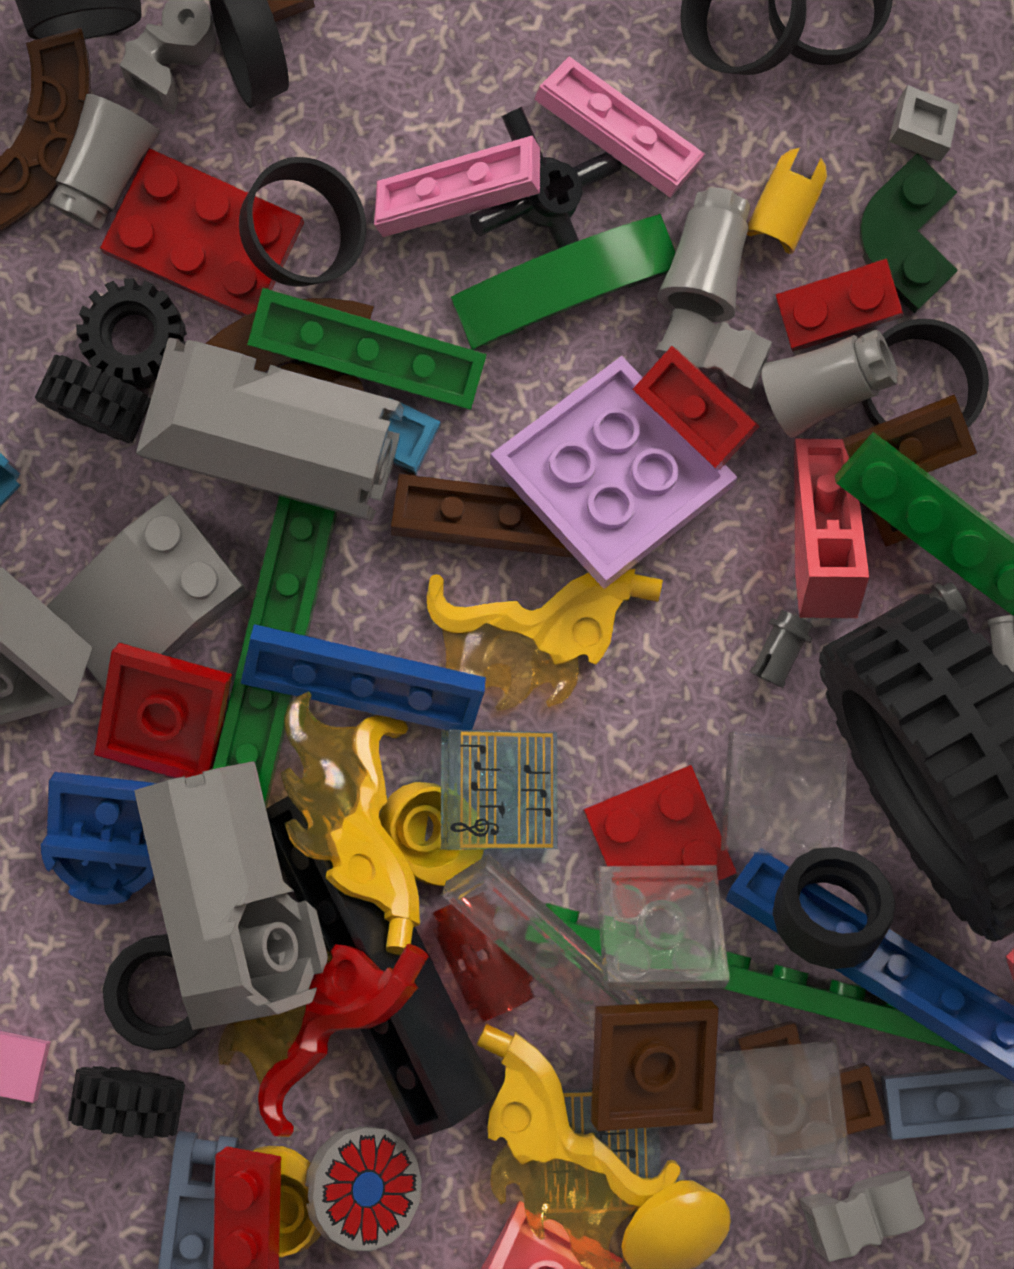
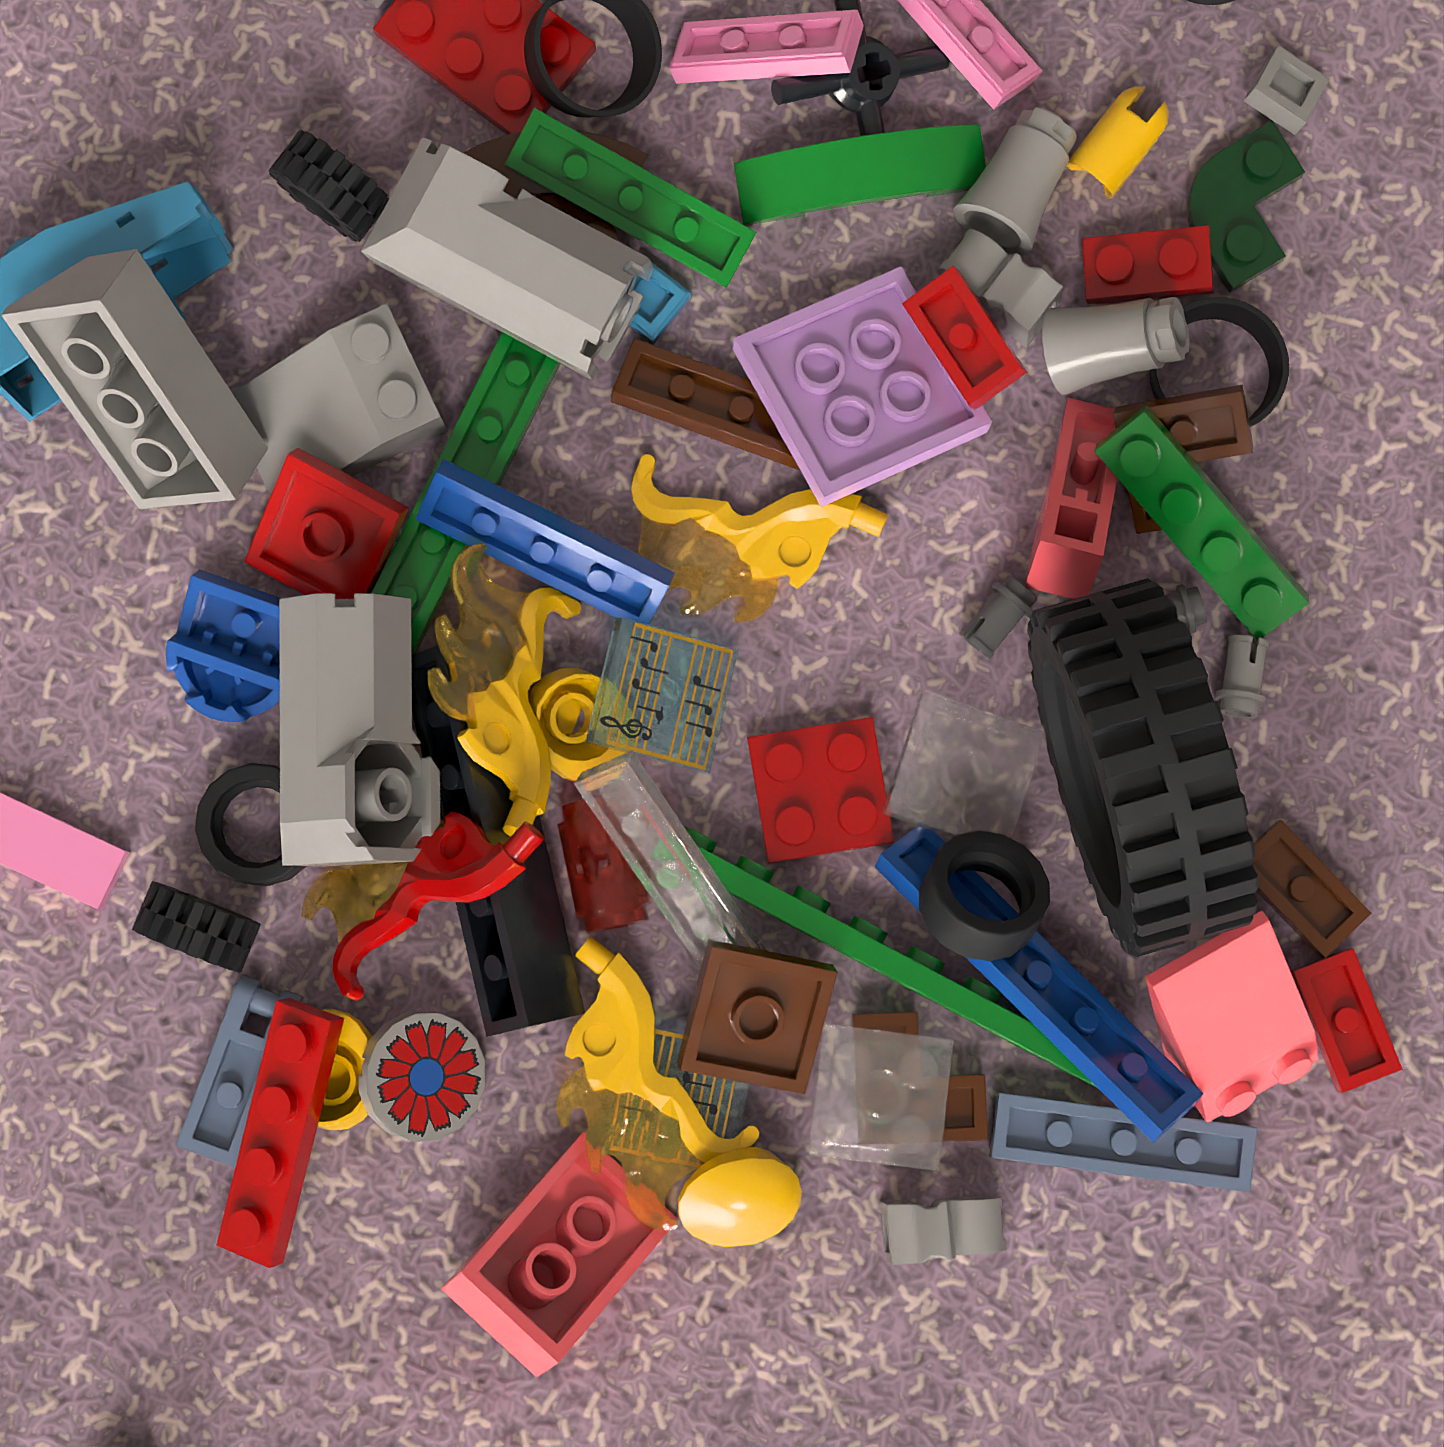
camera: 20 degrees right, 0 degrees up
(109, 310) = (372, 94): black tyre -> none
(661, 927) = (797, 873): clear plate -> none

